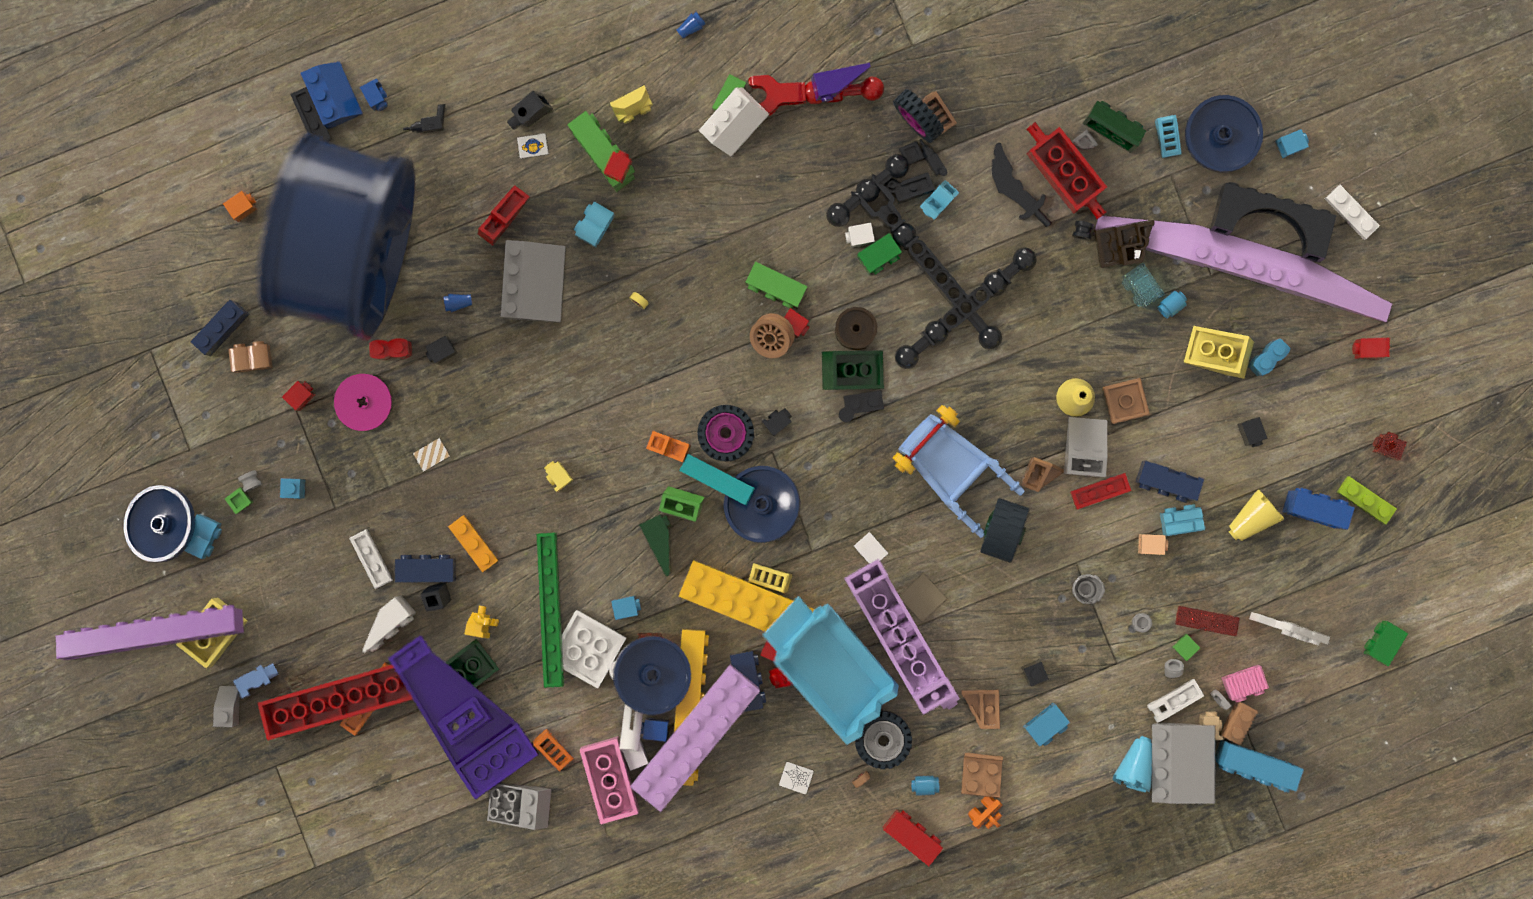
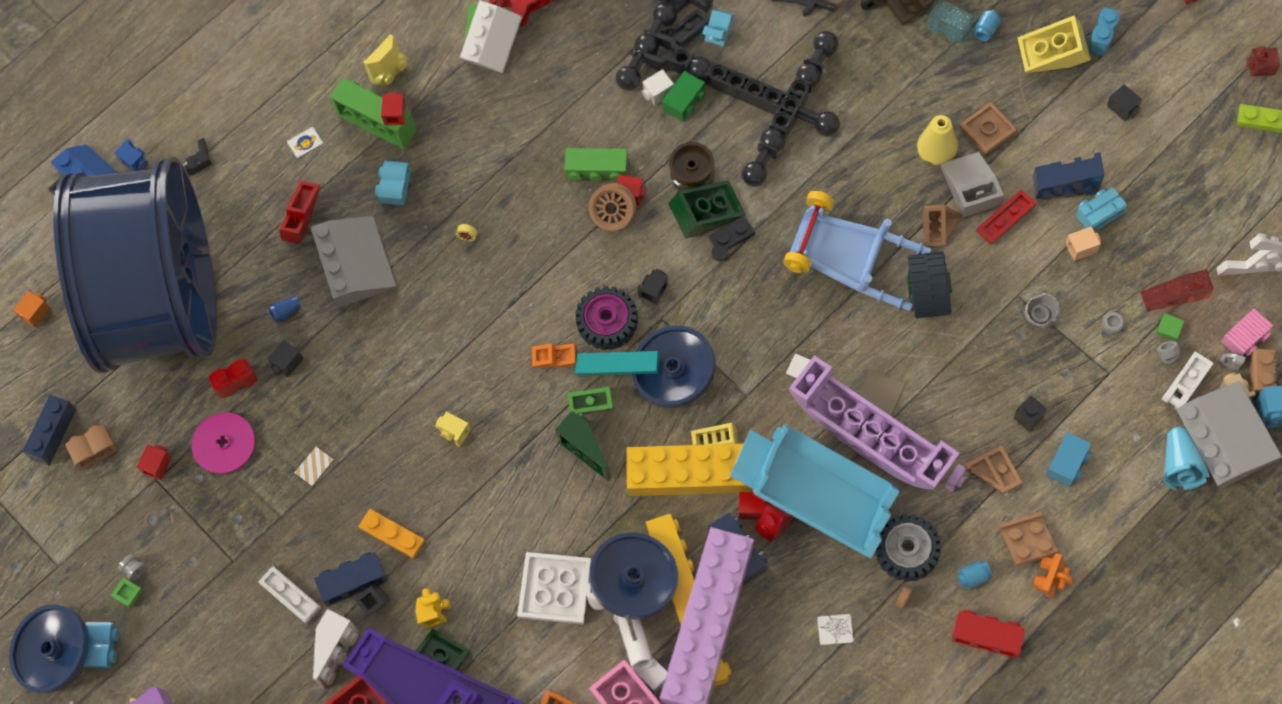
camera: 15 degrees left, 20 degrees down
(292, 488) = (179, 555): dark azure brick -> none
(536, 108) = (289, 107): black torso -> none
(550, 610) = (499, 565): green tile -> none
(626, 607) = (577, 527): dark azure brick -> none
(655, 729) = (661, 638): blue brick -> none
(1254, 517) = (1170, 174): light yellow cone -> none
(1318, 508) = (1227, 141): blue brick -> none

